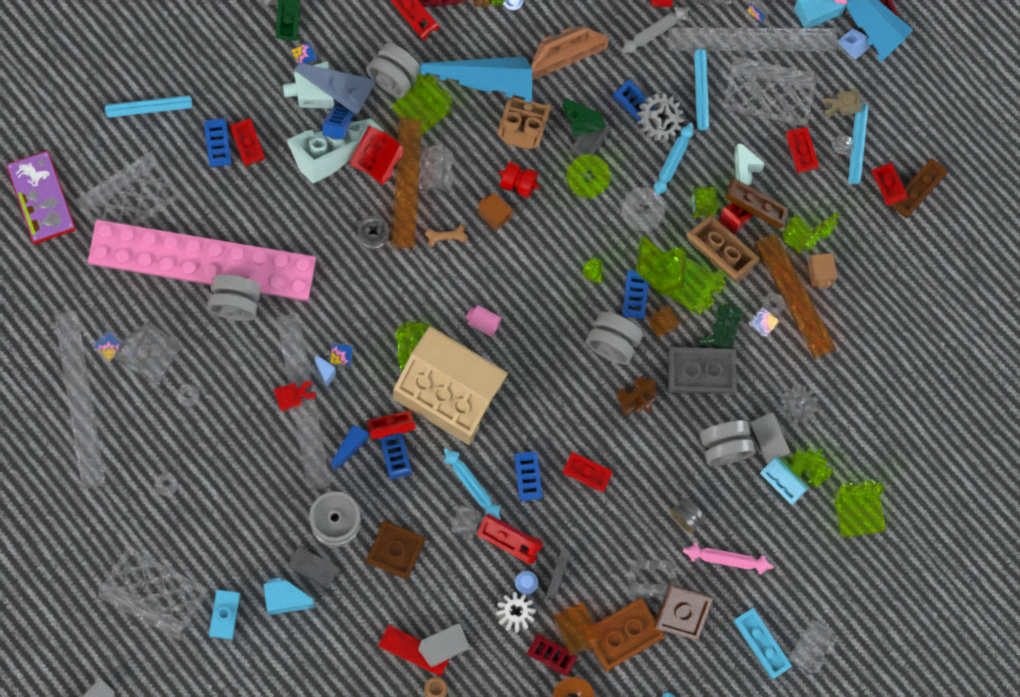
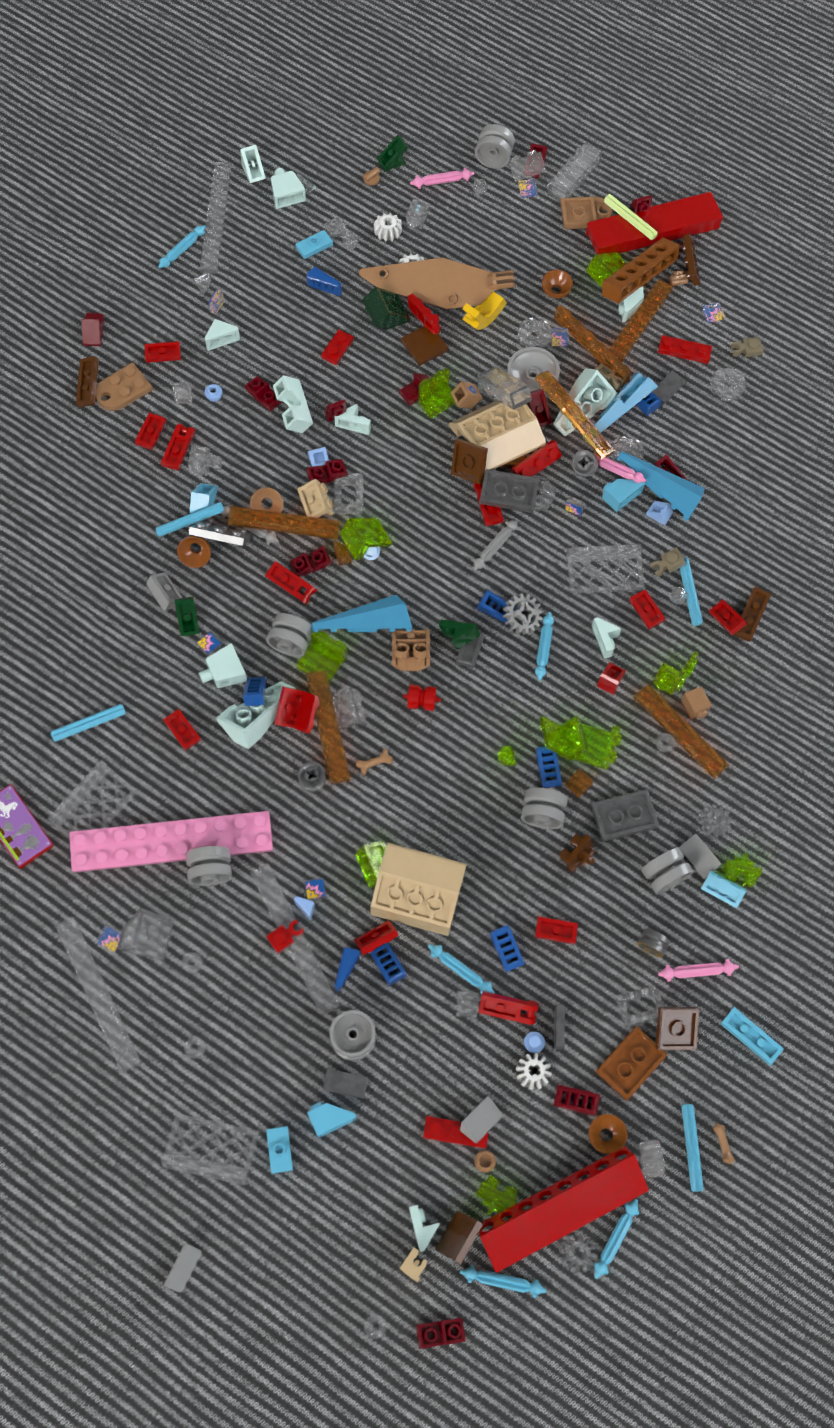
camera: 10 degrees left, 5 degrees down
(221, 127) = (146, 726): blue slope -> none
(343, 87) = (251, 661): sand blue wing -> none
(395, 550) = (412, 1047): reddish brown tile -> none
(483, 320) = (428, 824): bright pink brick -> none
(494, 211) = (409, 729): dark orange brick -> none
(566, 49) = (428, 579): nougat wedge -> none
(577, 629) = (591, 1070): clear orange plate -> none
(595, 186) = (470, 686): clear neon green plate -> none
(655, 212) = (543, 692): clear plate -> none
(701, 84) = (549, 583): medium azure axle -> none
(704, 202) = (581, 673): clear neon green brick -> none
(723, 249) = (610, 708): medium nougat slope -> none
(723, 336) = (632, 781): clear green piece -> none
(752, 39) = (576, 531): clear tile -> none
(756, 203) = (625, 663): reddish brown plate -> none
(764, 322) = (662, 760): clear tile -> none
(812, 647) = (795, 1027): clear bracket -> none
(859, 508) = (794, 895): clear neon green bracket -> none

